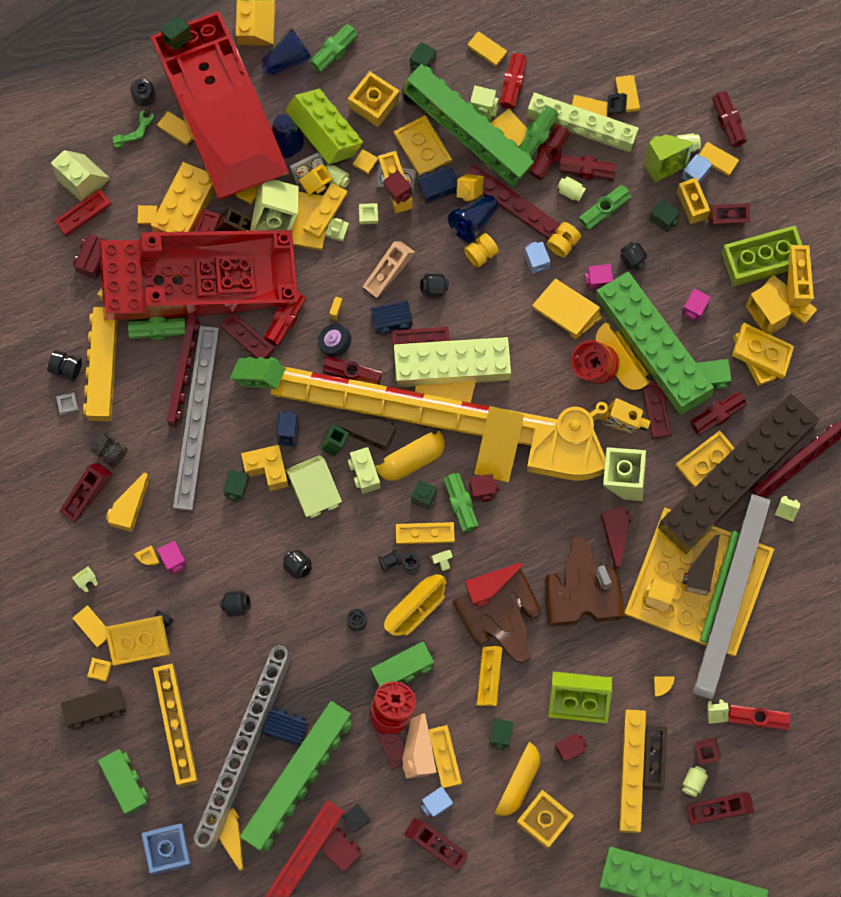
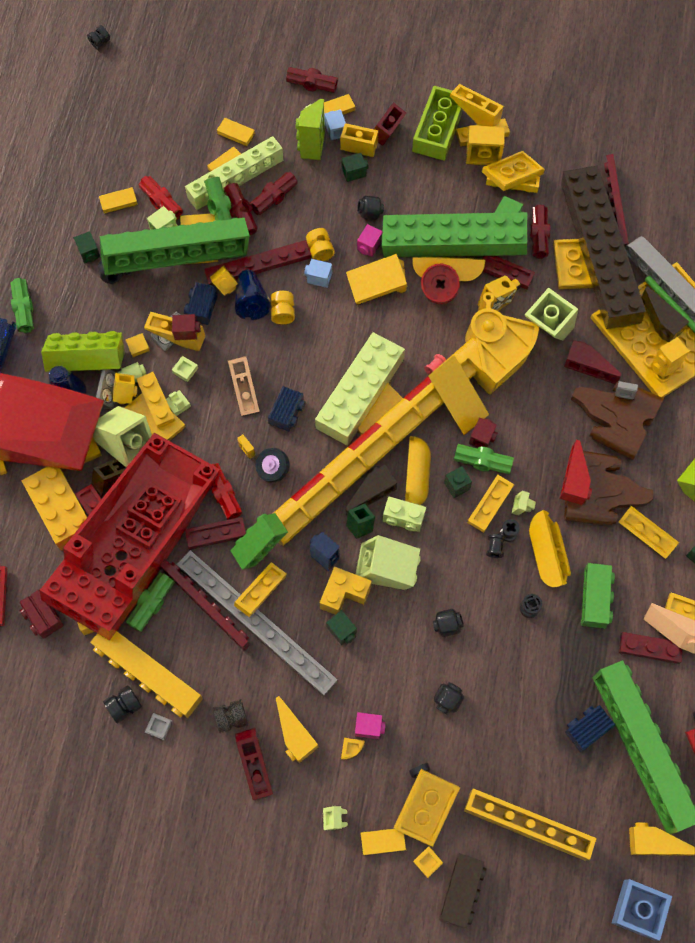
camera: 55 degrees left, 5 degrees down
(124, 781) = (551, 908): bright green brick -> none
(146, 214) = (41, 544): yellow tile -> none
(223, 402) = (260, 589): none -> yellow plate
(243, 757) = (592, 786): light grey beam -> none
(340, 368) = (300, 476): dark red piece -> none
(374, 99) = (91, 302): yellow brick -> none
(392, 707) = (632, 624): red wheel -> none
(421, 335) = (318, 399): dark red plate -> none
(422, 146) = (159, 295): yellow tile -> none
(434, 285) = (283, 360): black head -> none
(524, 408) = (438, 360): none -> coral bush
(571, 188) = (281, 215): yellowish green brick -> none
(596, 214) = (315, 194): bright green piece -> none
(617, 103) = (239, 140): black plate -> none
(695, 305) = (442, 191): dark pink brick -> none
(787, 509) = (650, 232): yellowish green tile -> none

